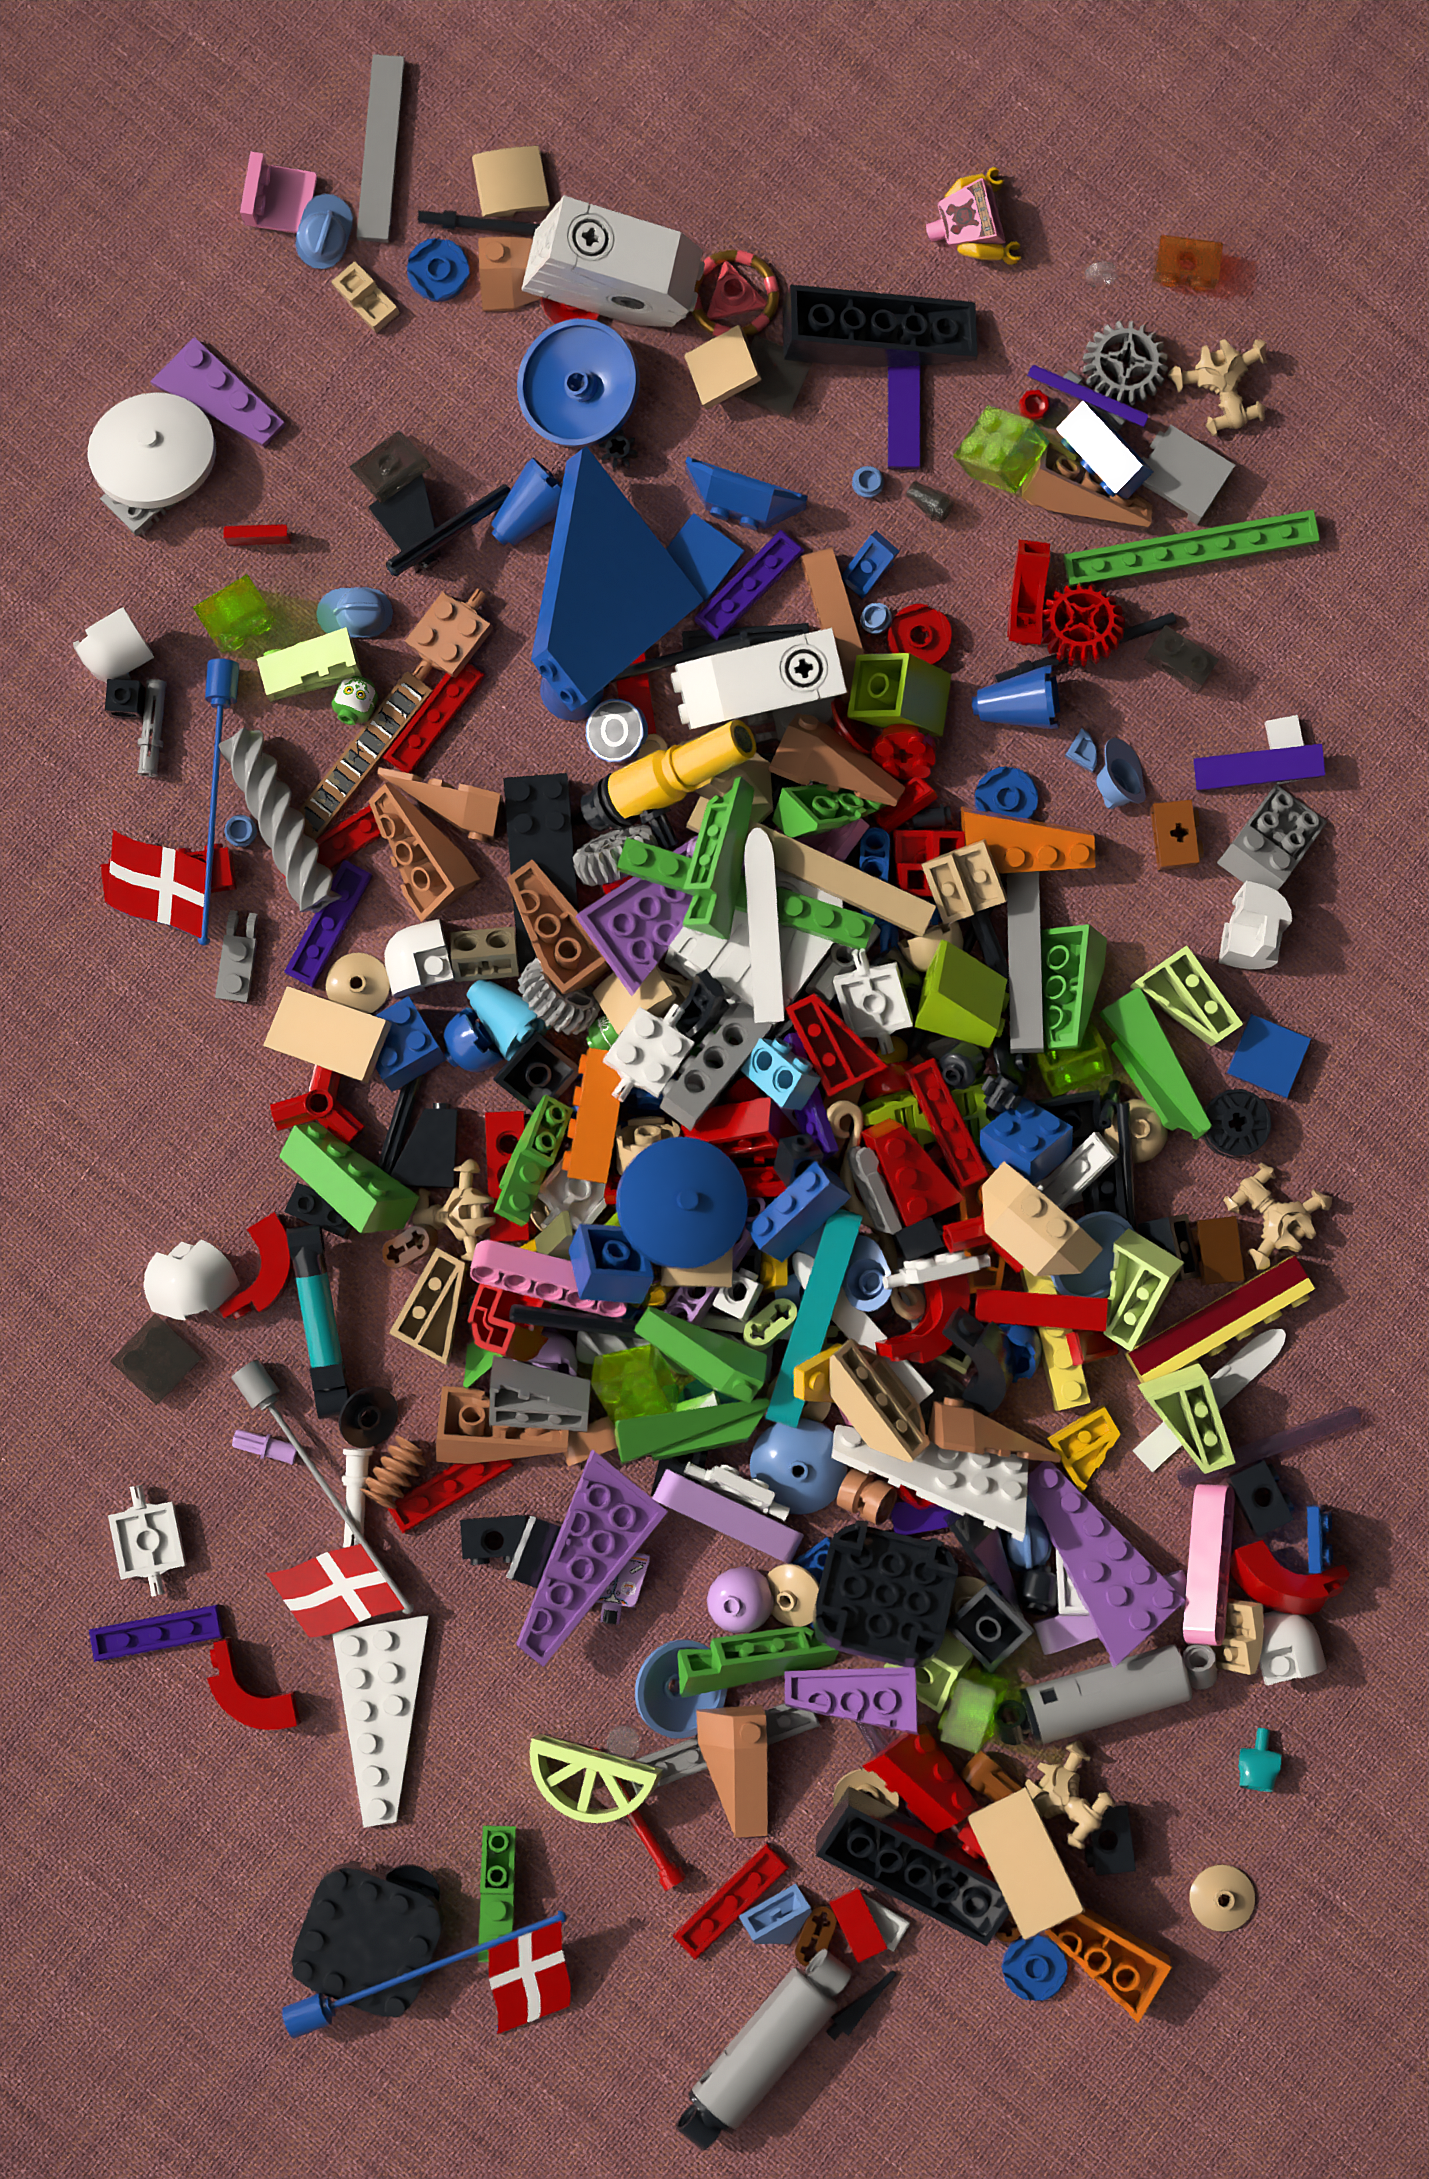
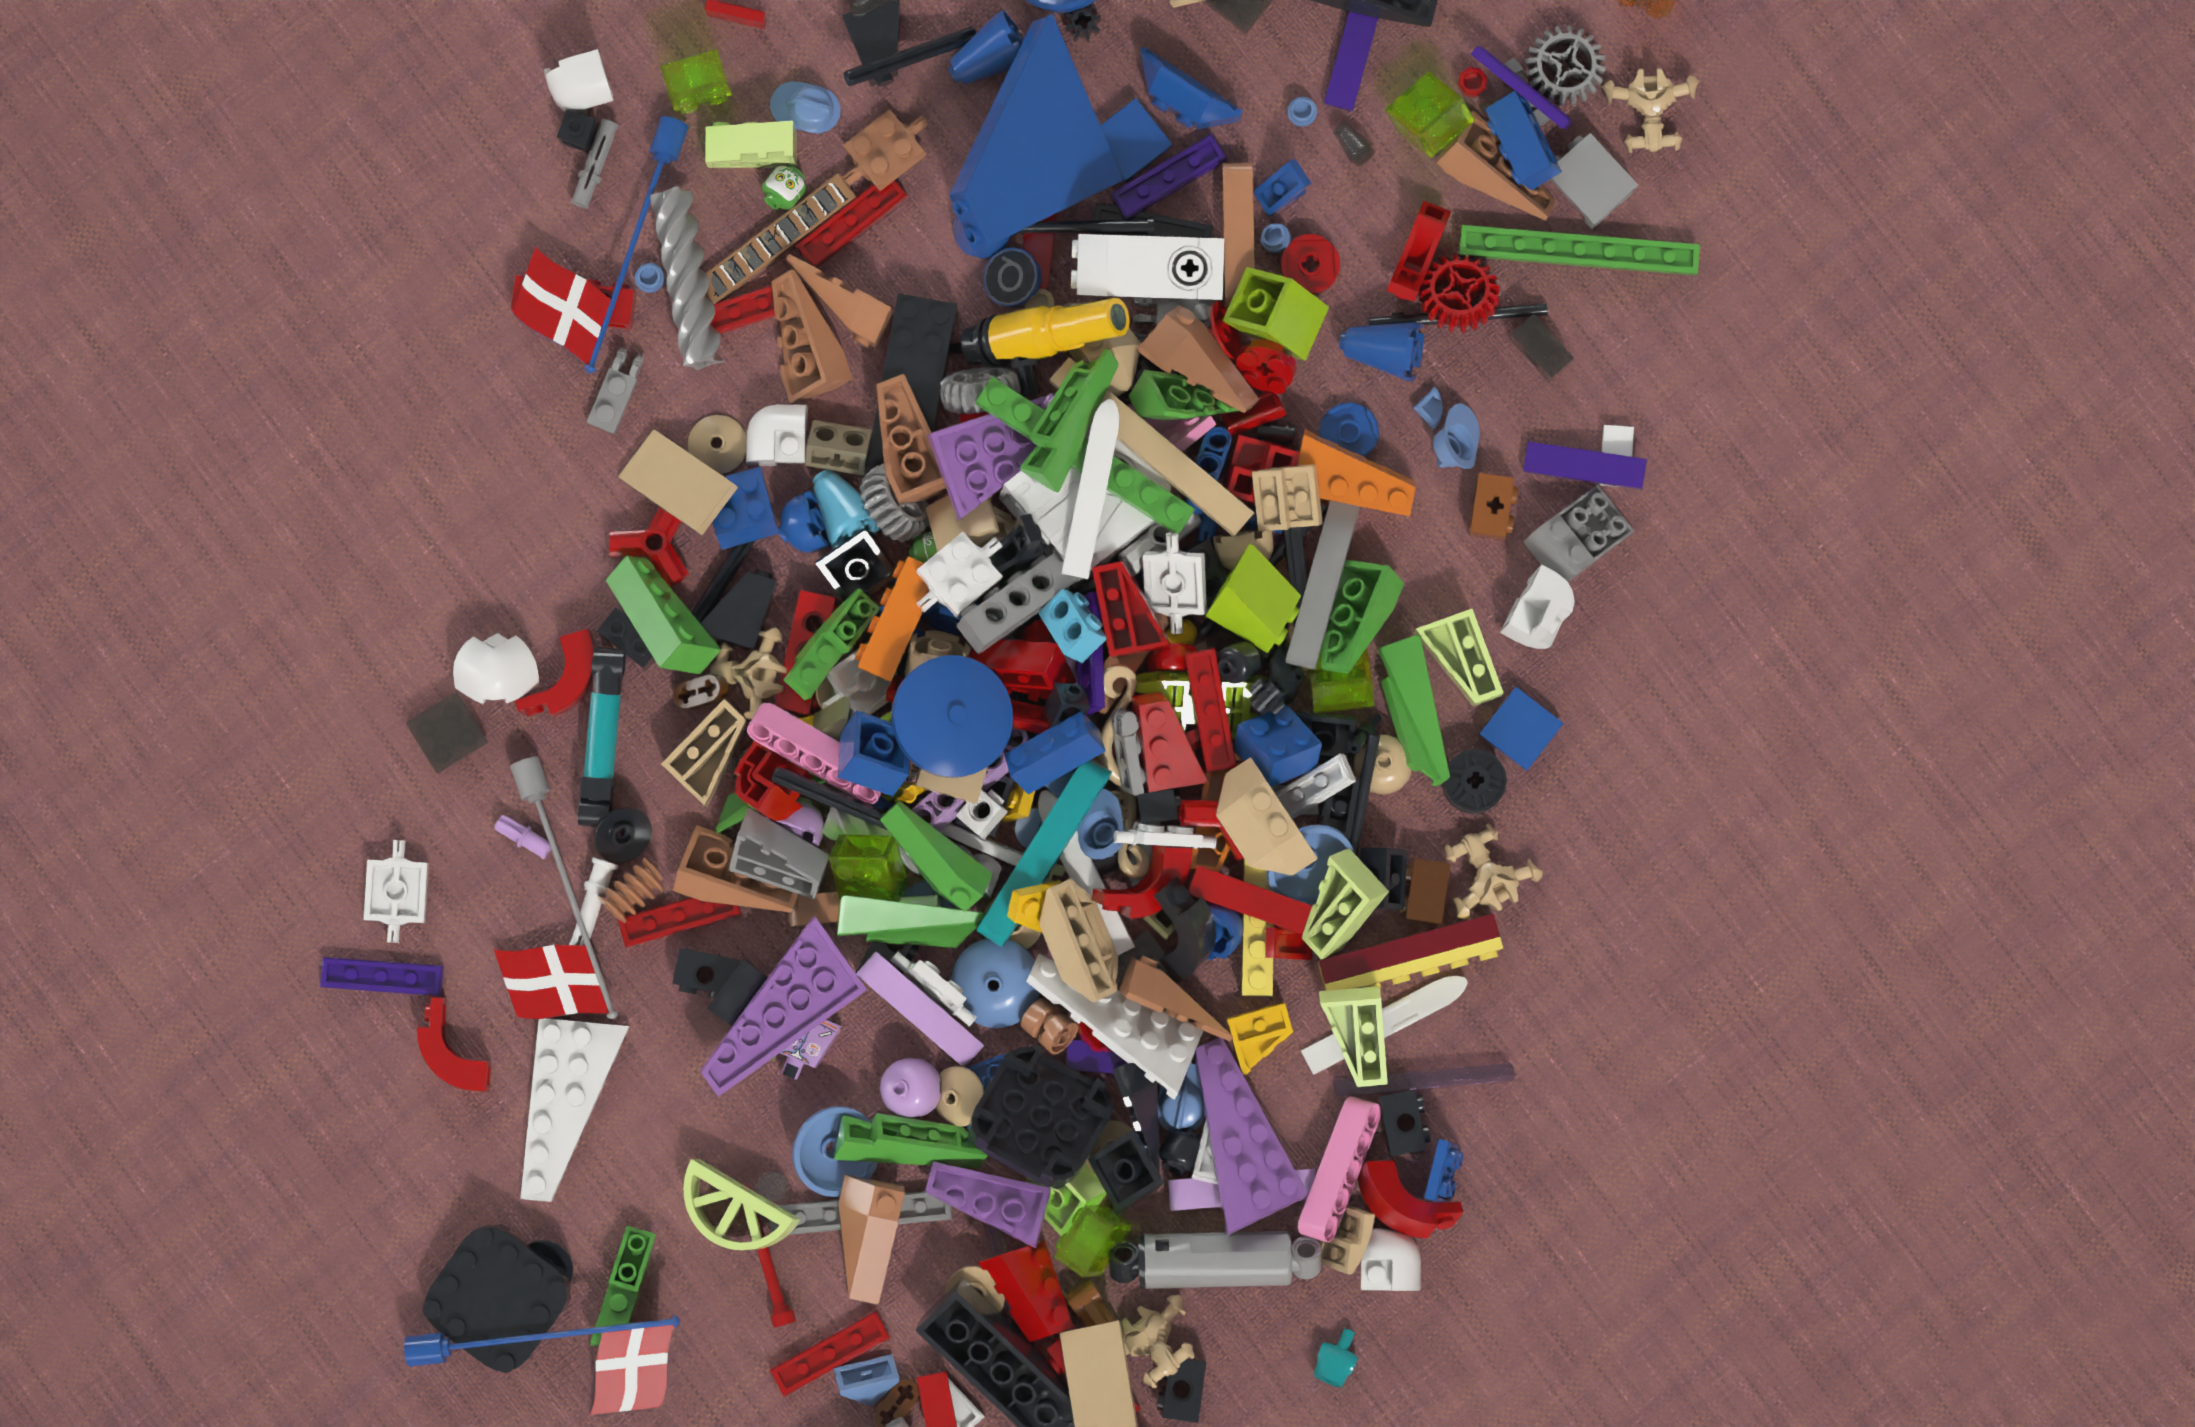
camera: 20 degrees right, 0 degrees up
(328, 925) = (705, 384): dark purple tile -> none
(774, 1329) = (1001, 841): yellowish green beam -> none

